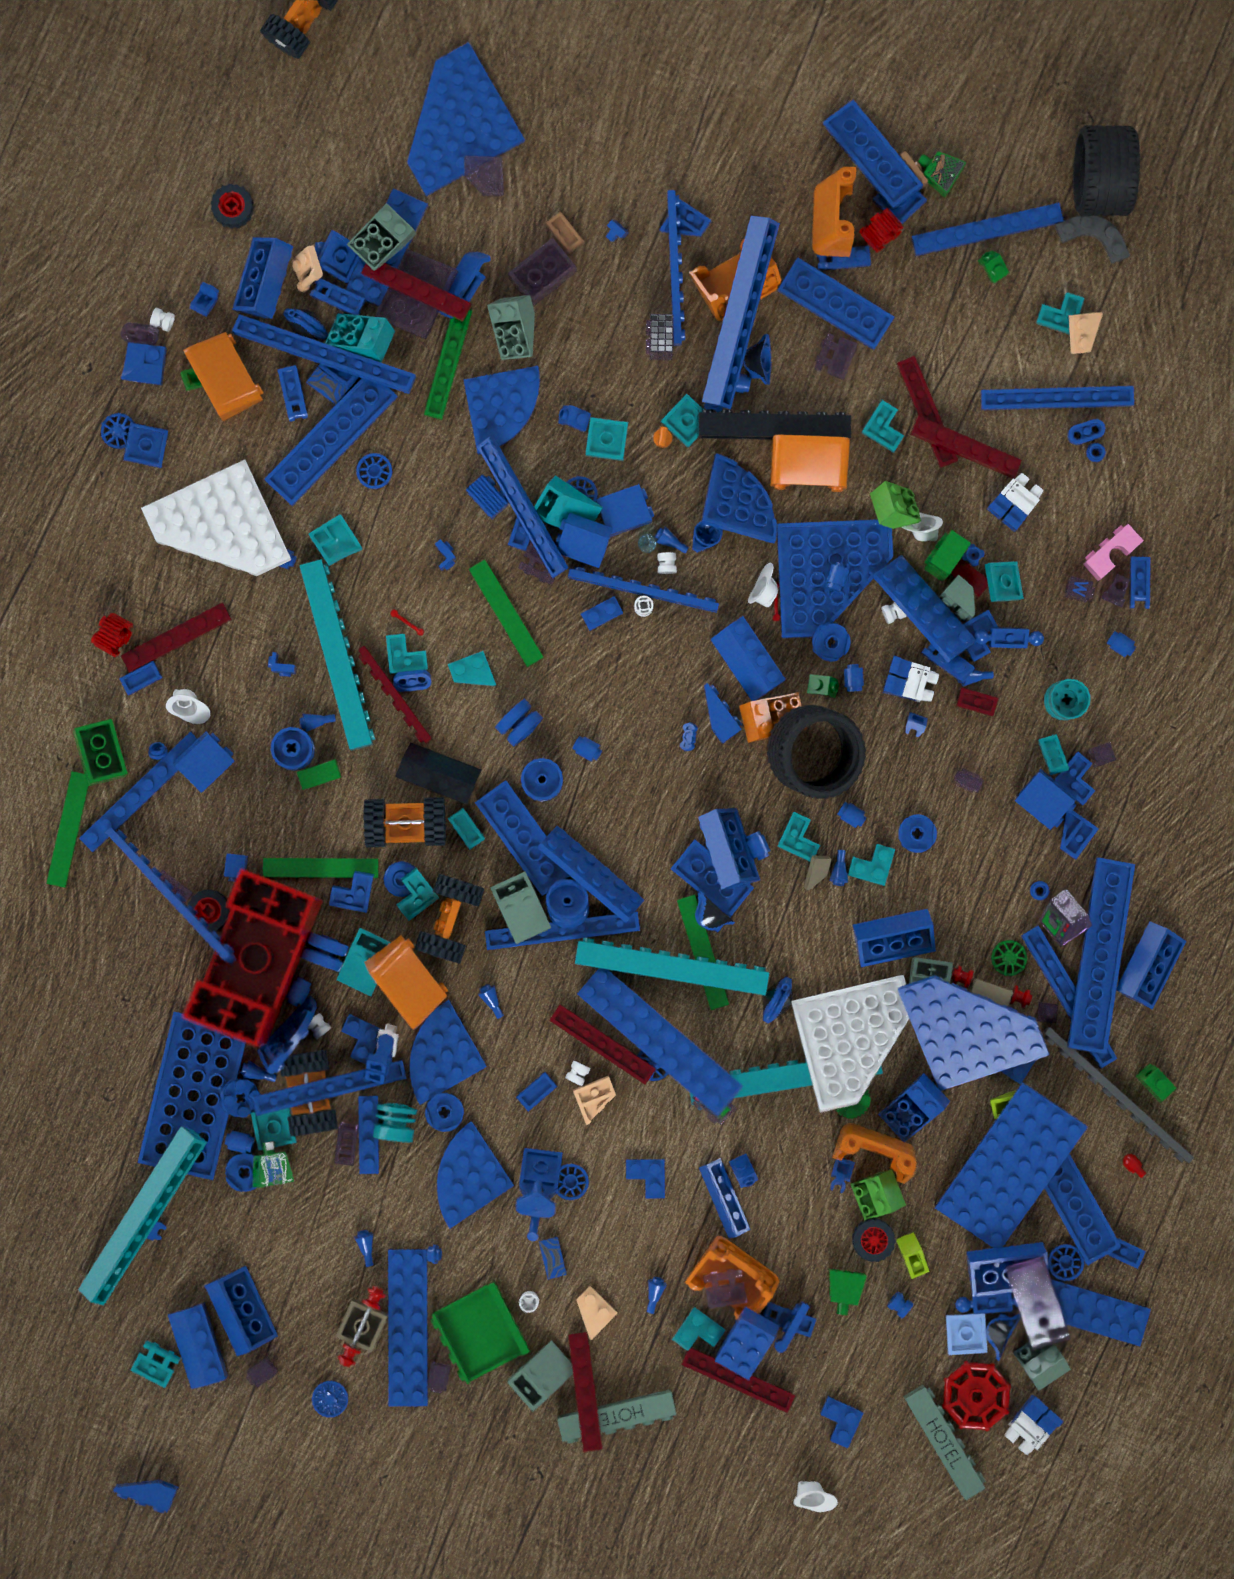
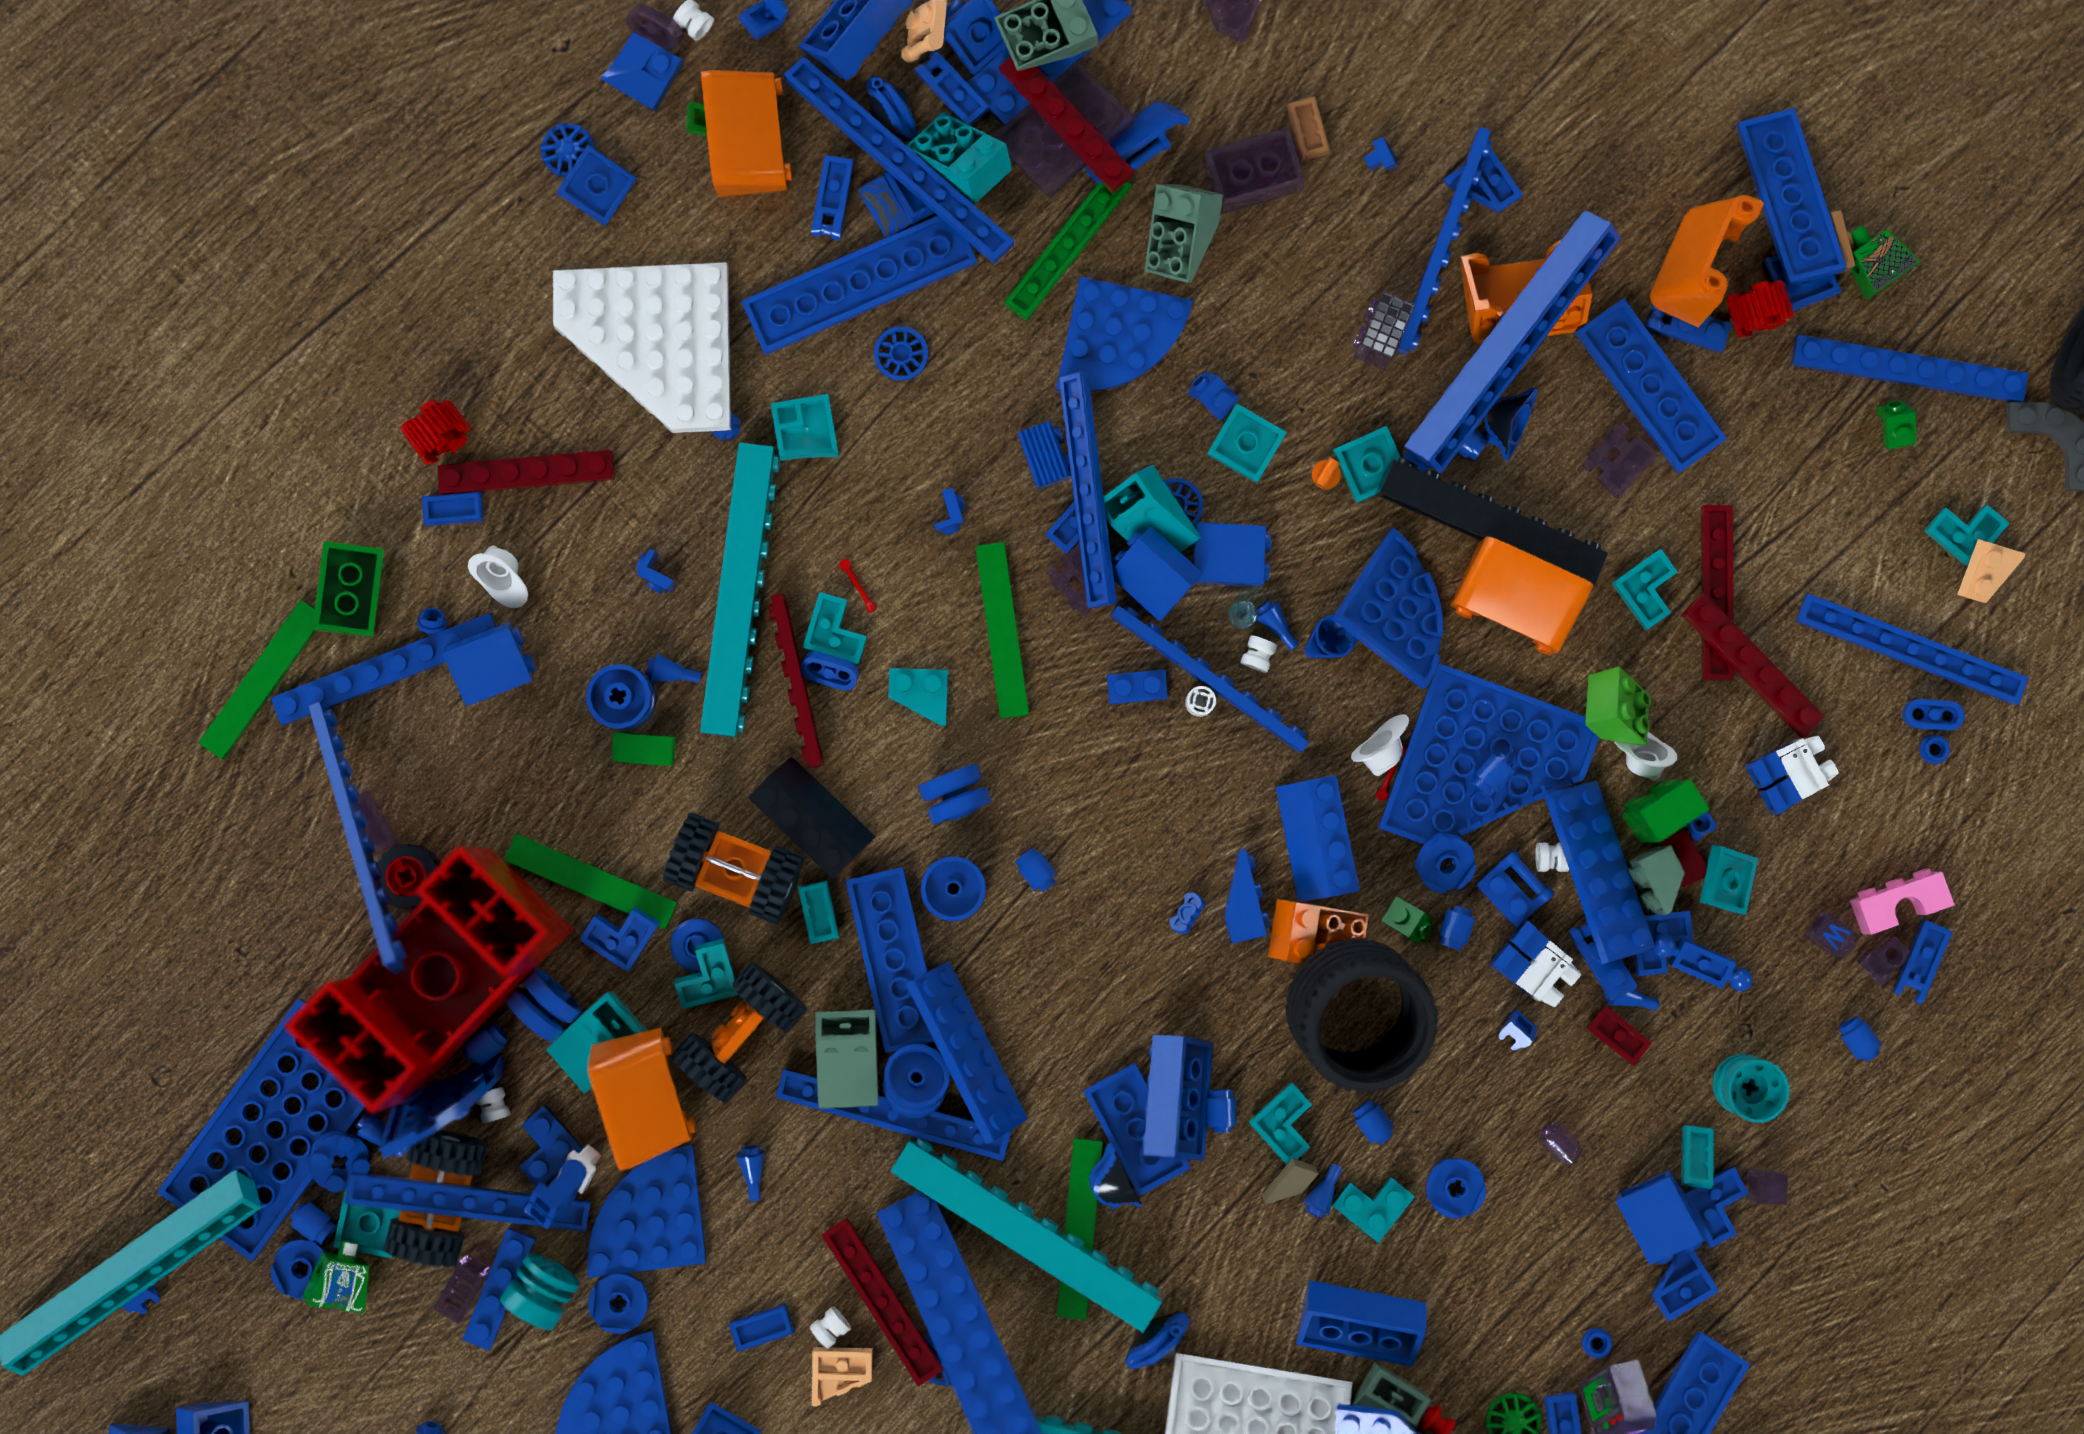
camera: 30 degrees right, 0 degrees up
(234, 864) = (472, 828): blue brick -> none
(876, 646) = (1507, 895): none -> blue plate

